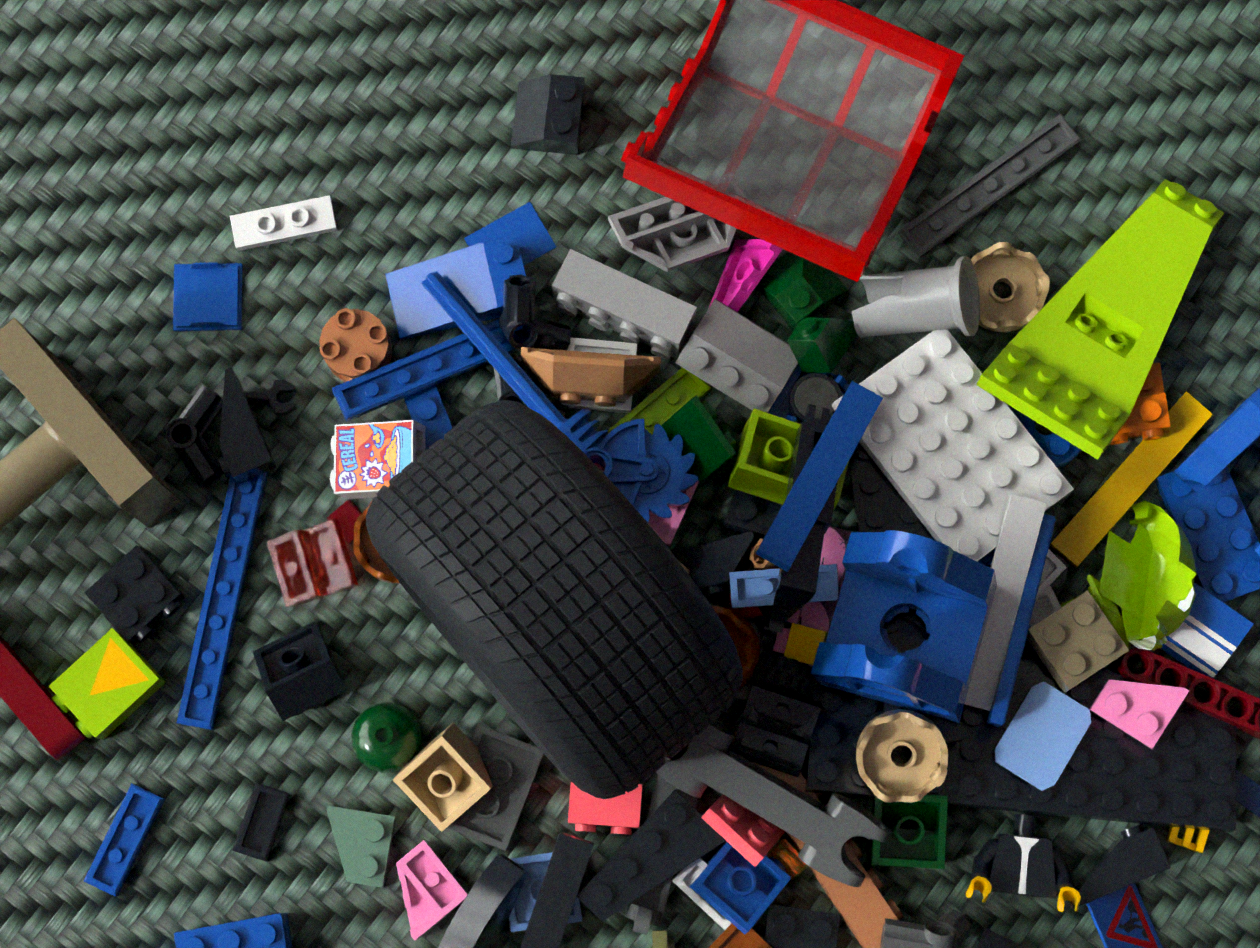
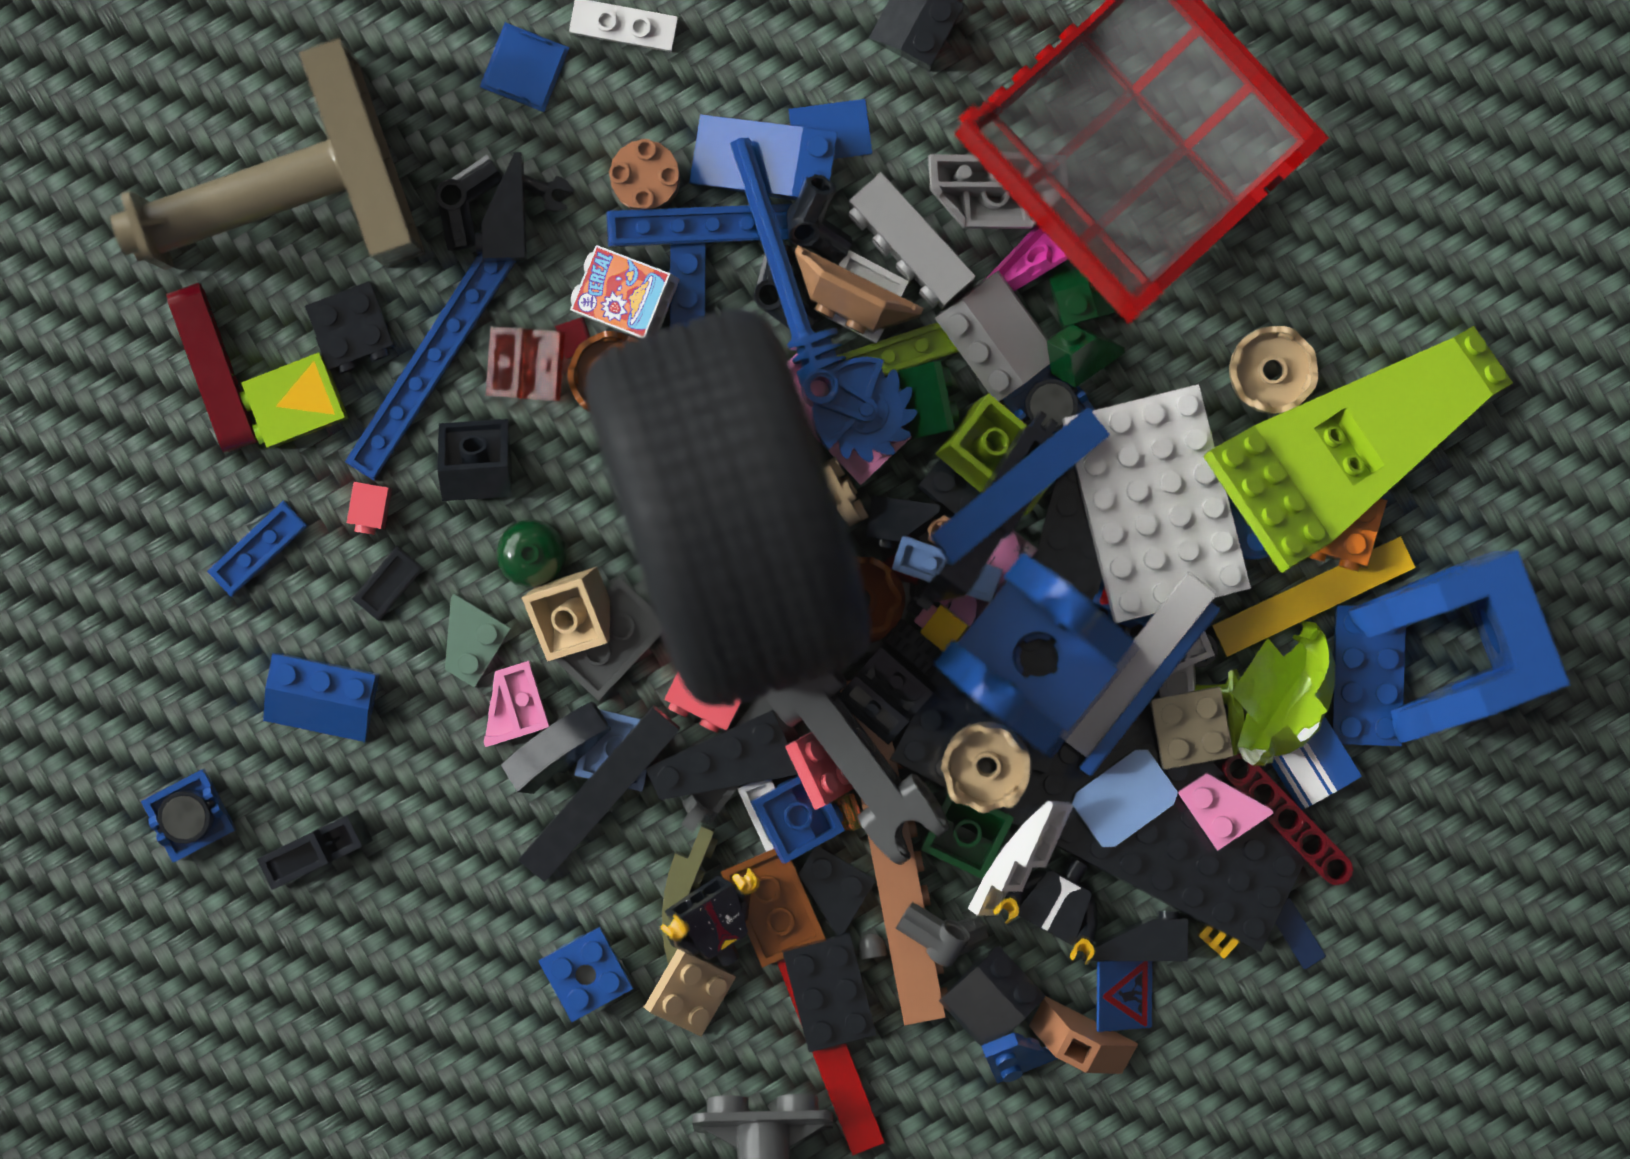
camera: 20 degrees right, 10 degrees up
(215, 756) = (368, 507): none -> coral brick
(920, 301) = (1189, 355): light grey piece -> none
(973, 820) = (1026, 849): none -> white slope
(989, 186) = (1305, 264): dark grey tile -> none

